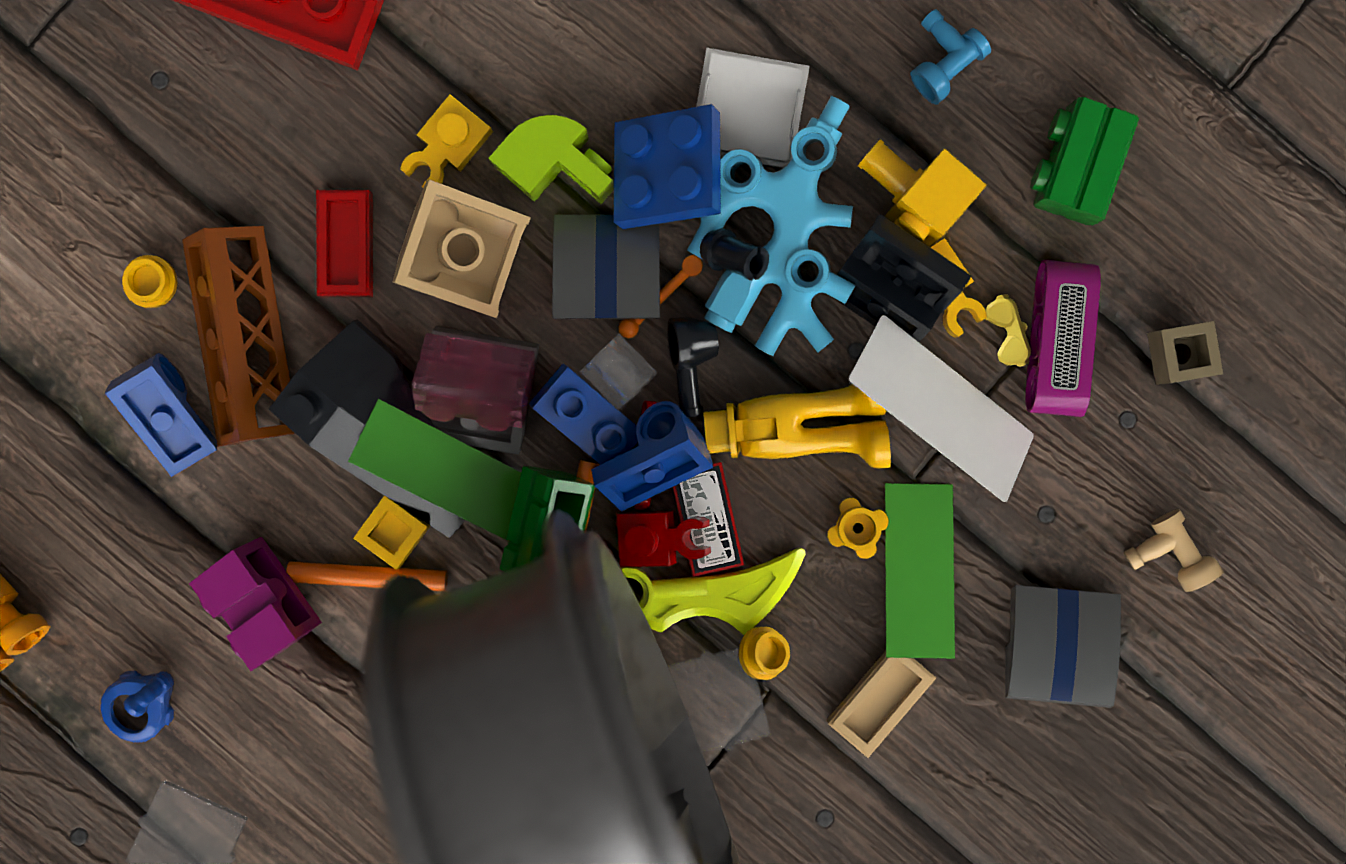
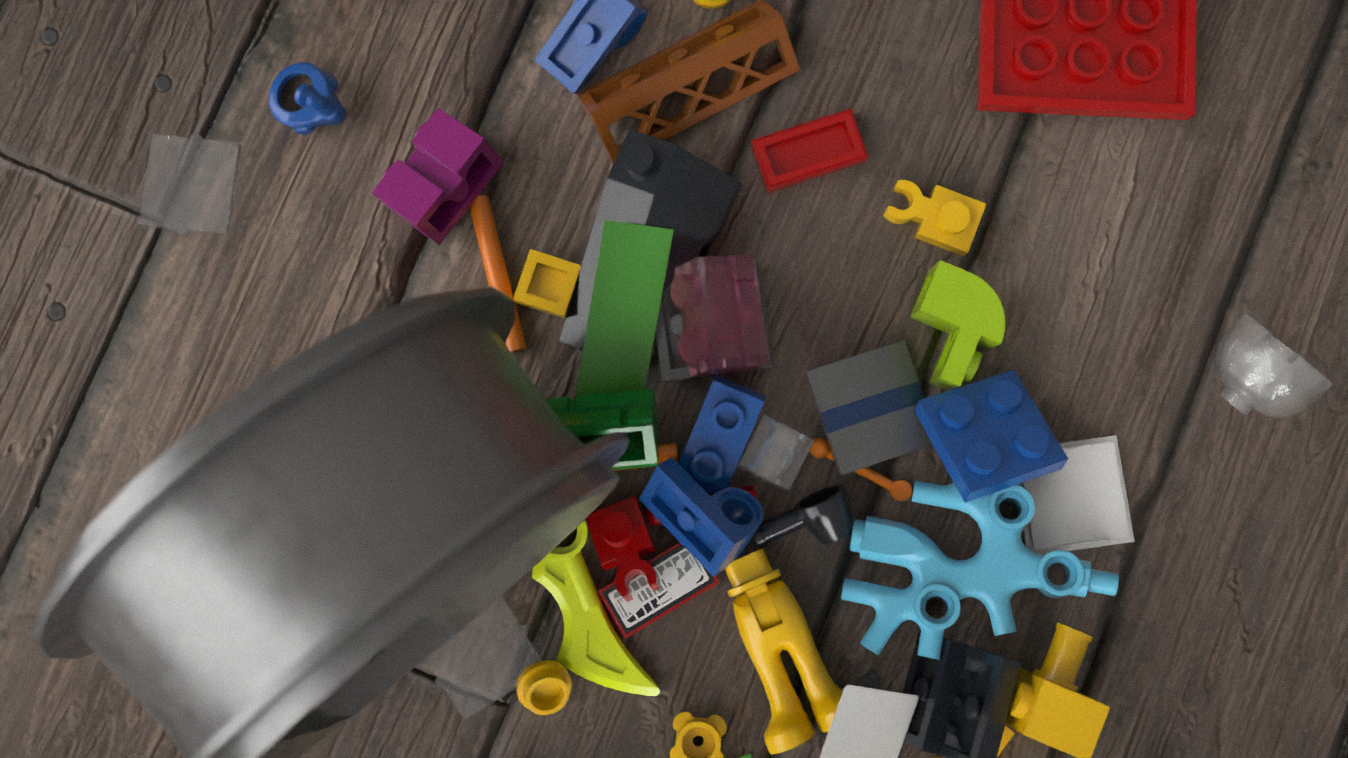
camera: 75 degrees right, 5 degrees down
(459, 248) = (843, 260): tan slope -> none
(724, 251) = (928, 516): black pin -> none
(933, 79) = (1166, 670): dark azure piece -> none

